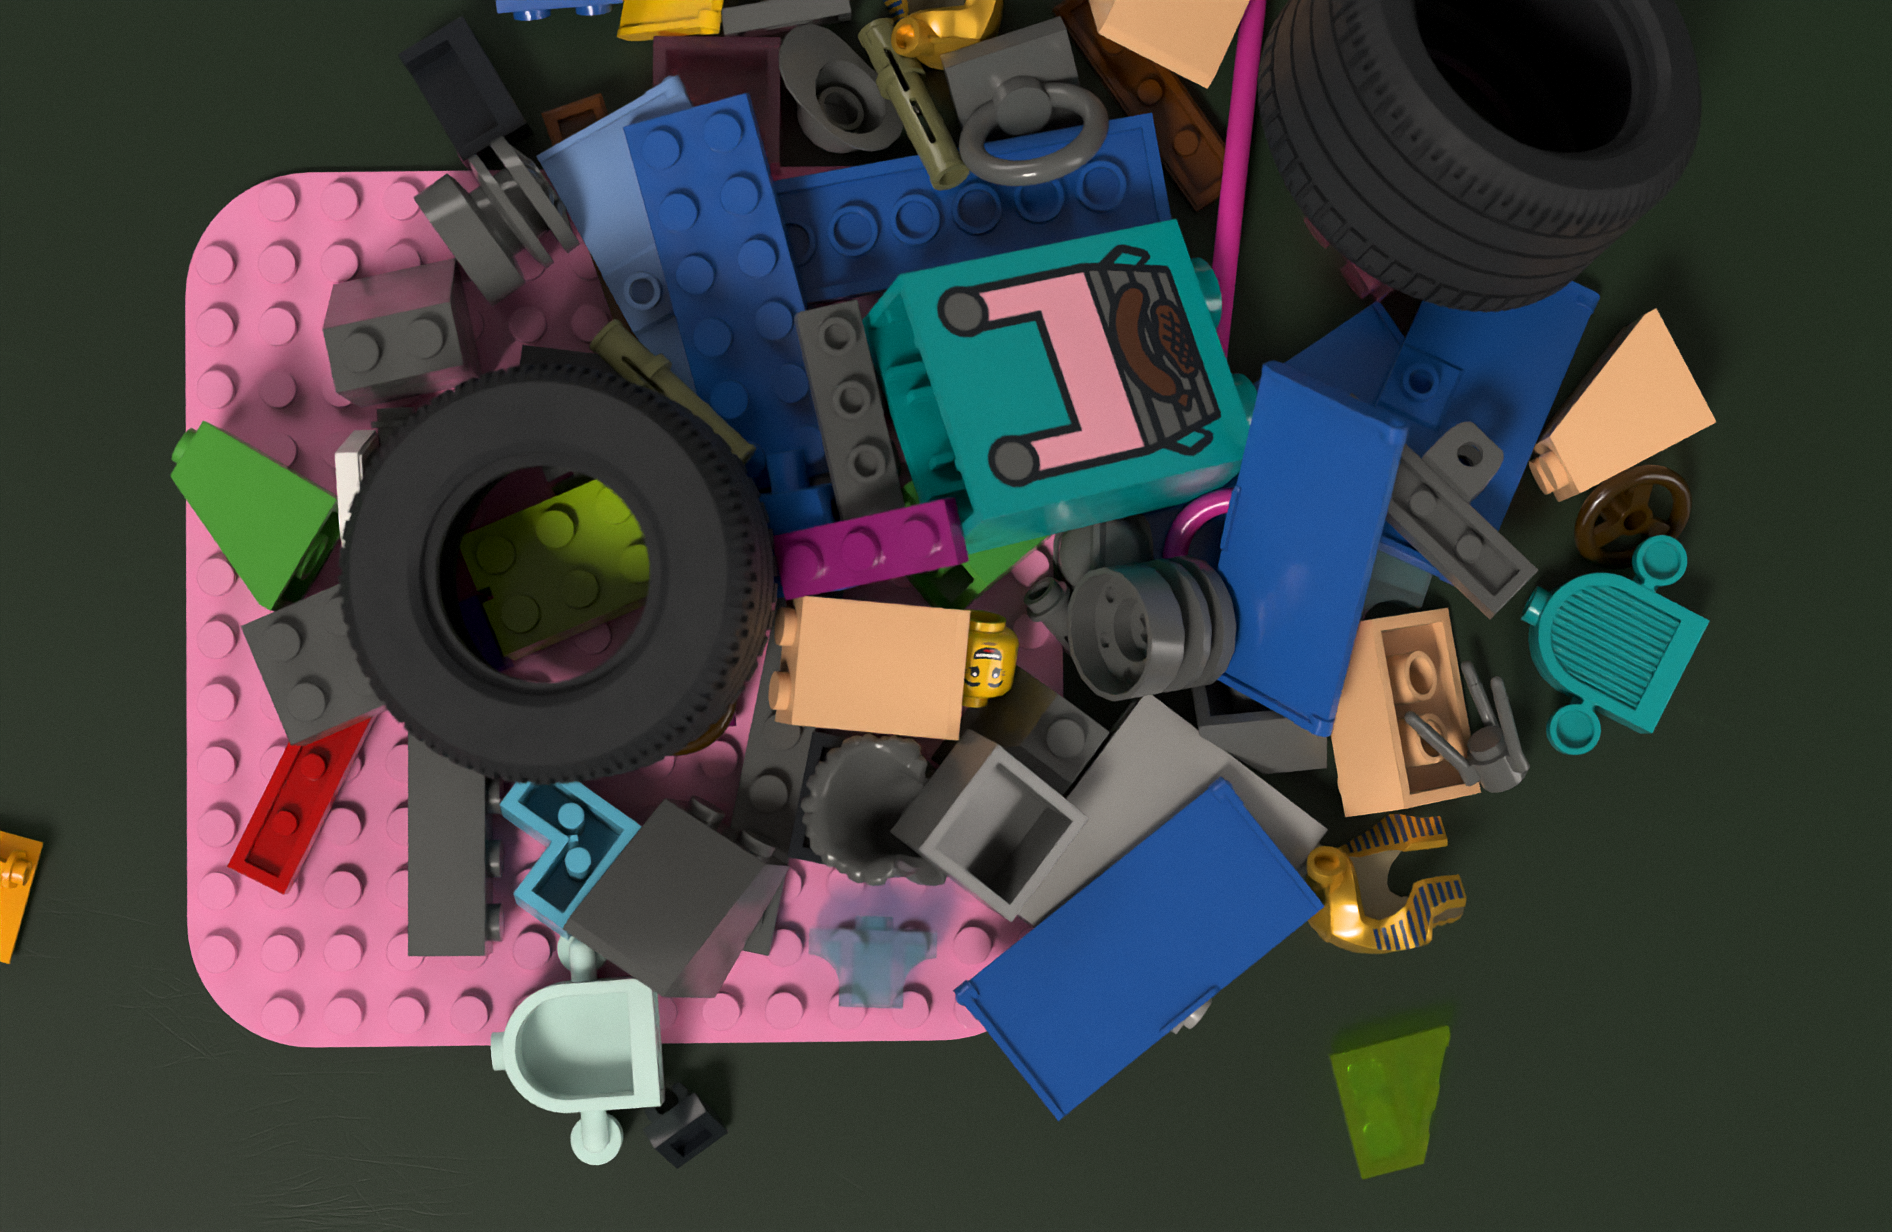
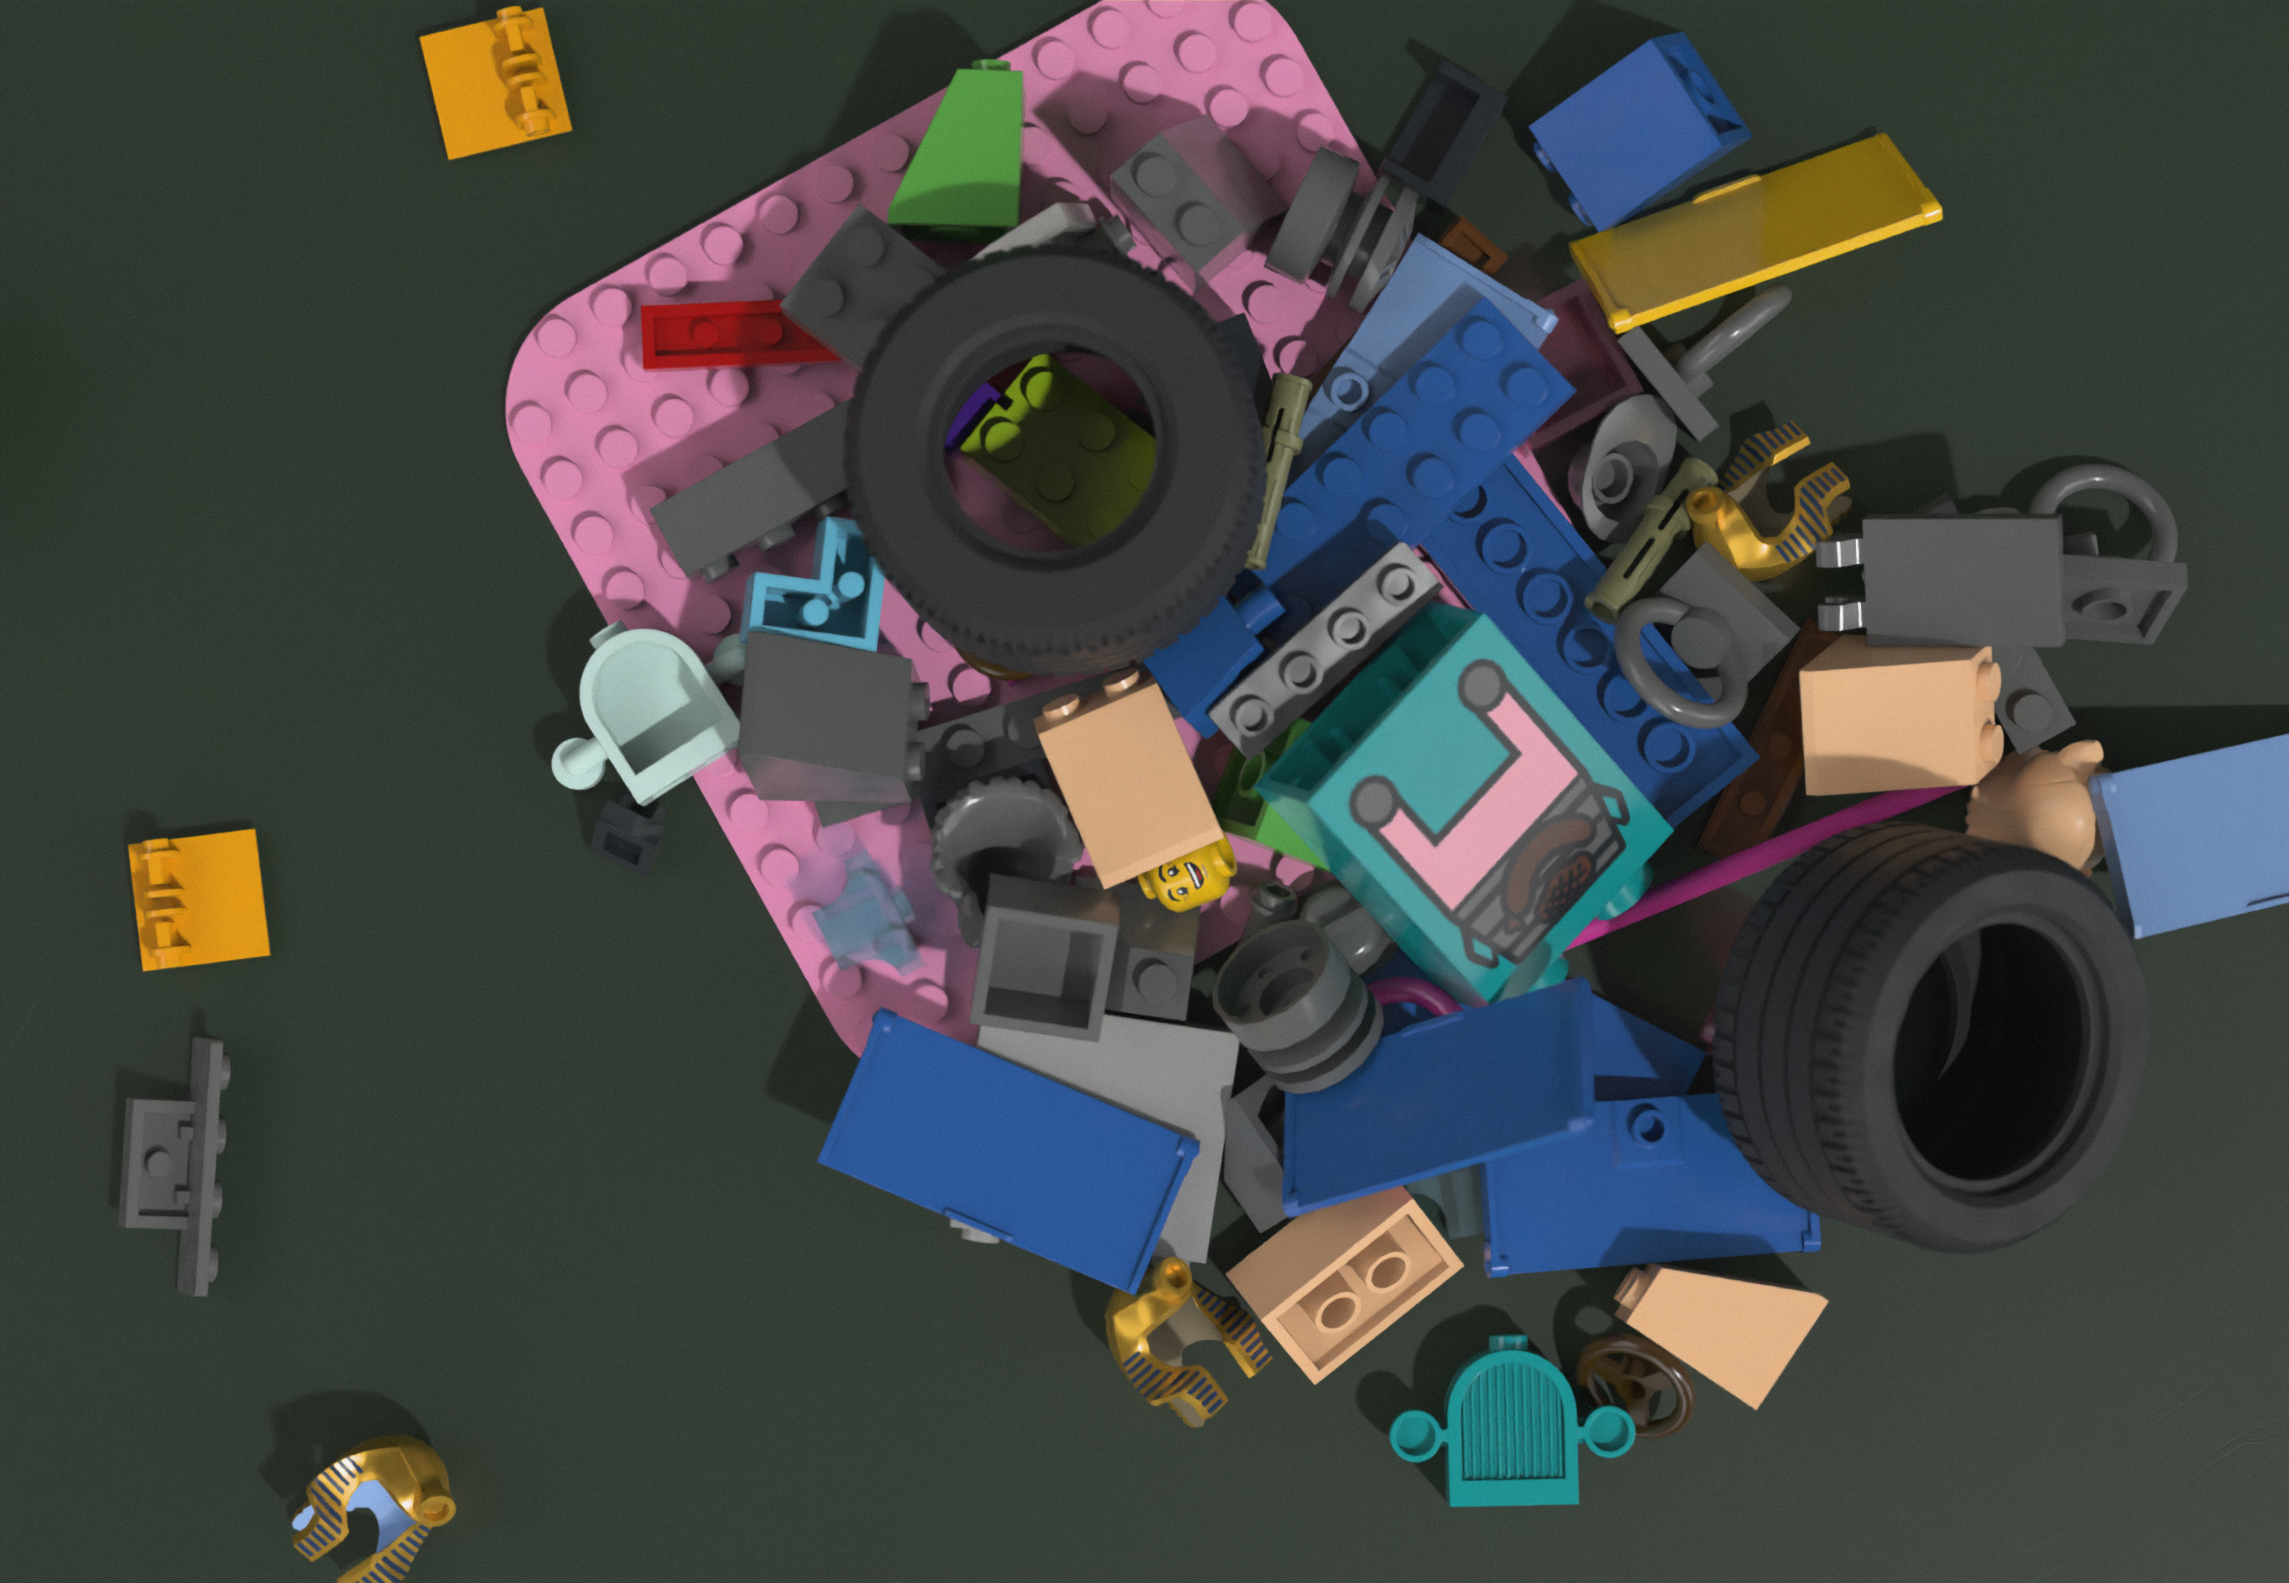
camera: 60 degrees right, 0 degrees up
(870, 548) = (1229, 719): magenta plate -> none
(1390, 1097) = (997, 1451): clear neon green wing -> none
(1436, 517) = (1538, 1200): dark grey plate -> none
(1493, 751) = (1358, 1374): dark grey plant -> none

